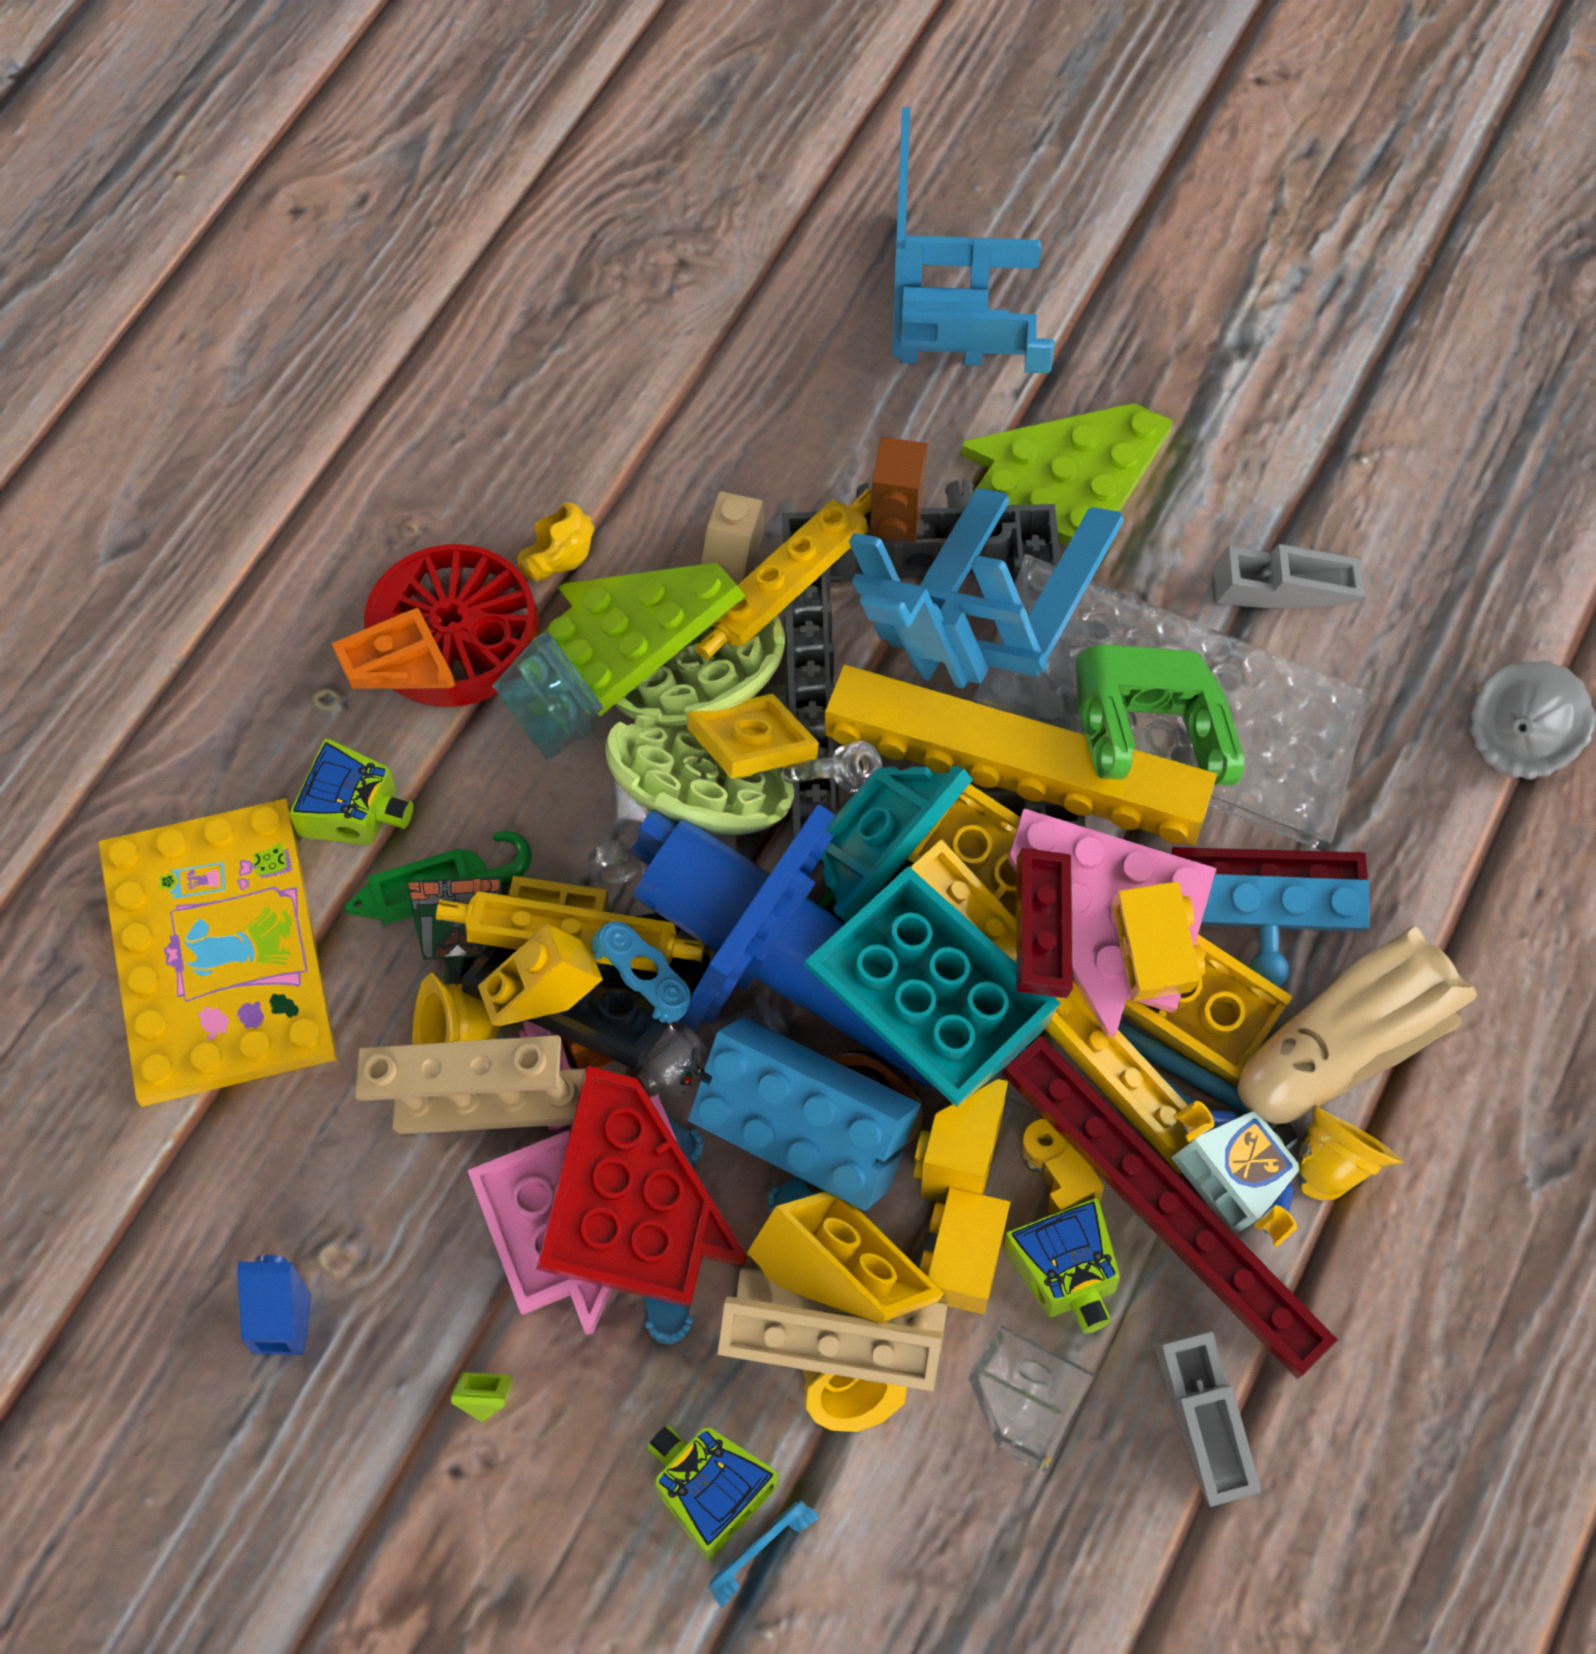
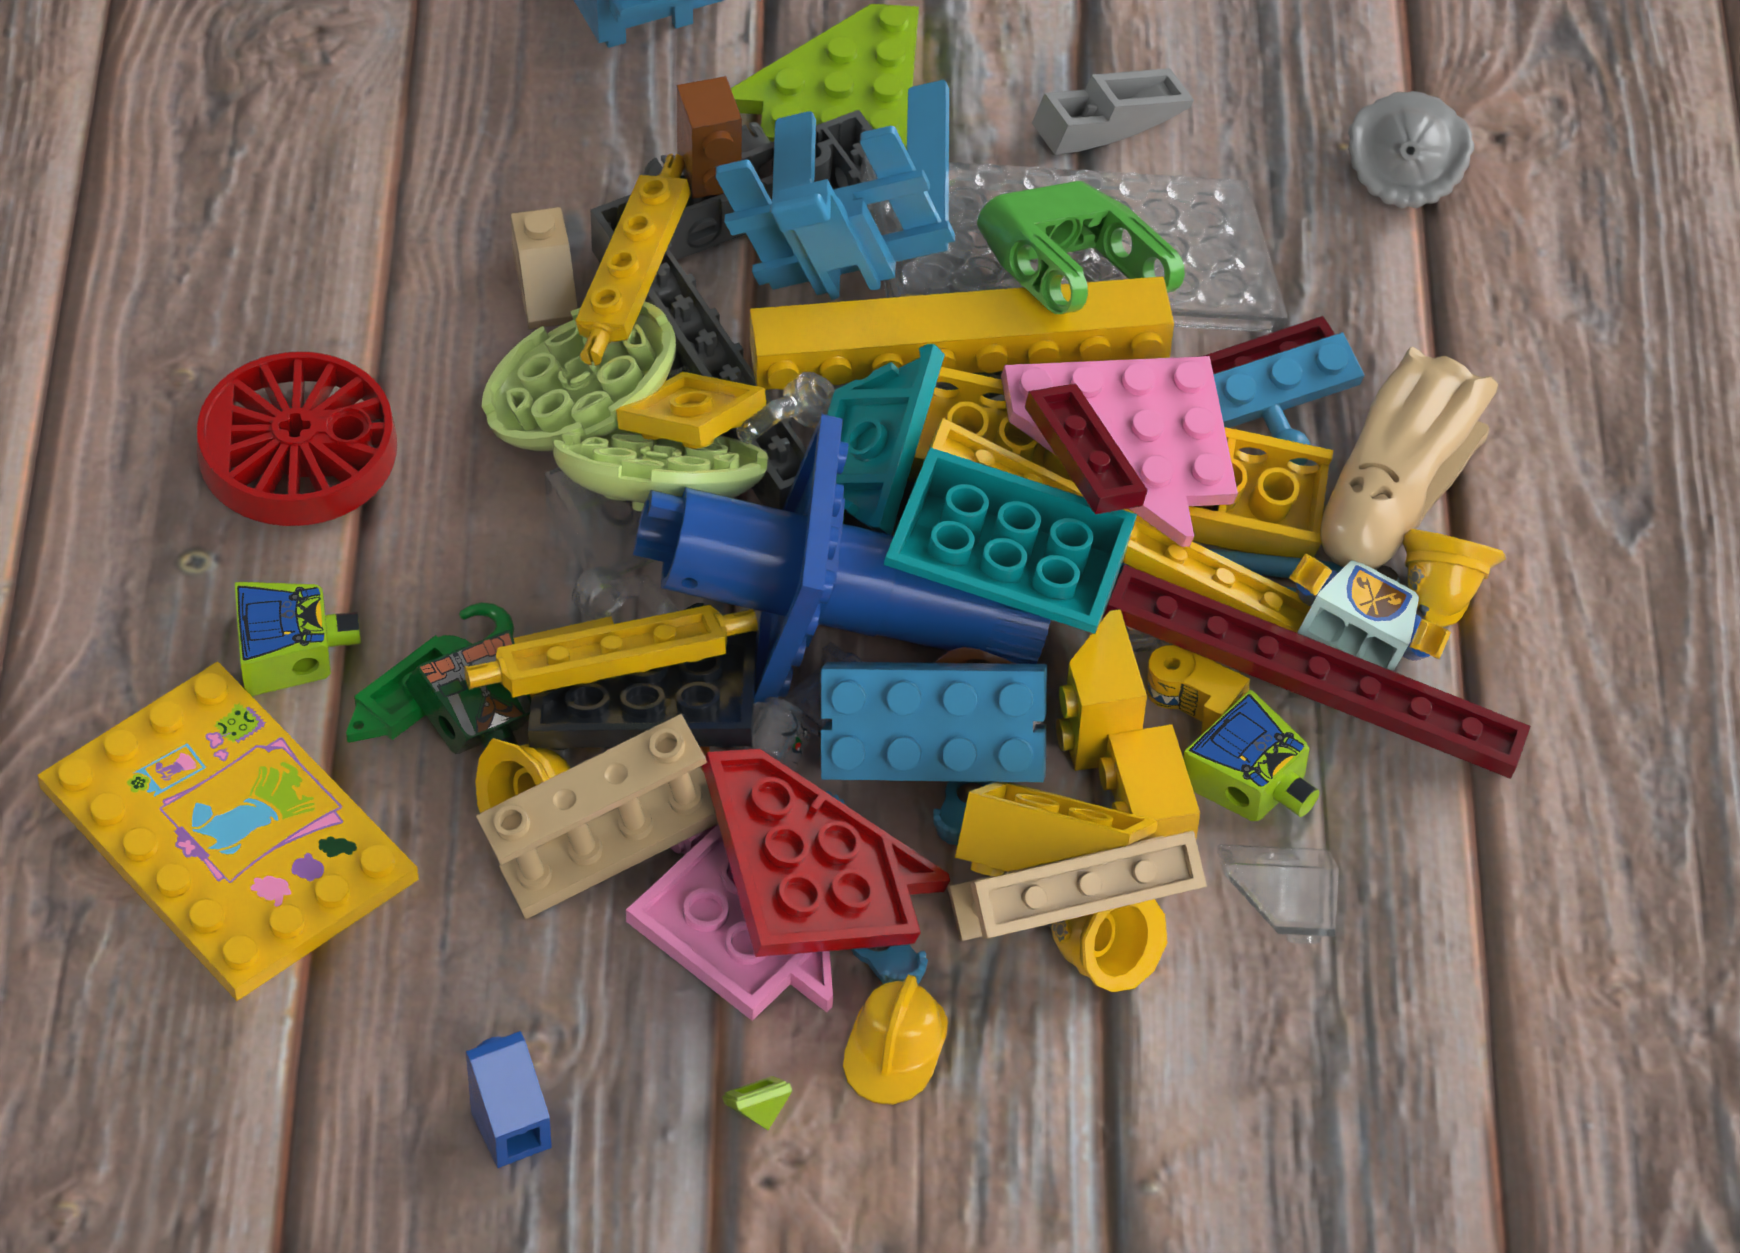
camera: 30 degrees left, 10 degrees down
(394, 656) = (267, 476): orange wing -> none
(540, 978) = (614, 692): yellow slope -> none
(548, 696) = (449, 458): clear light blue plate -> none
(560, 543) = (364, 321): yellow hair -> none
(626, 1392) = (895, 1042): none -> yellow piece
(637, 622) = (499, 367): lime wing -> none
(665, 992) = (683, 633): dark azure piece -> none
(710, 1485) = (1028, 1080): torso -> none
(724, 1584) = (1094, 1148): dark azure piece -> none
(1157, 941) = (1194, 430): yellow brick -> none
(1208, 1417) = (1449, 835): light grey slope -> none

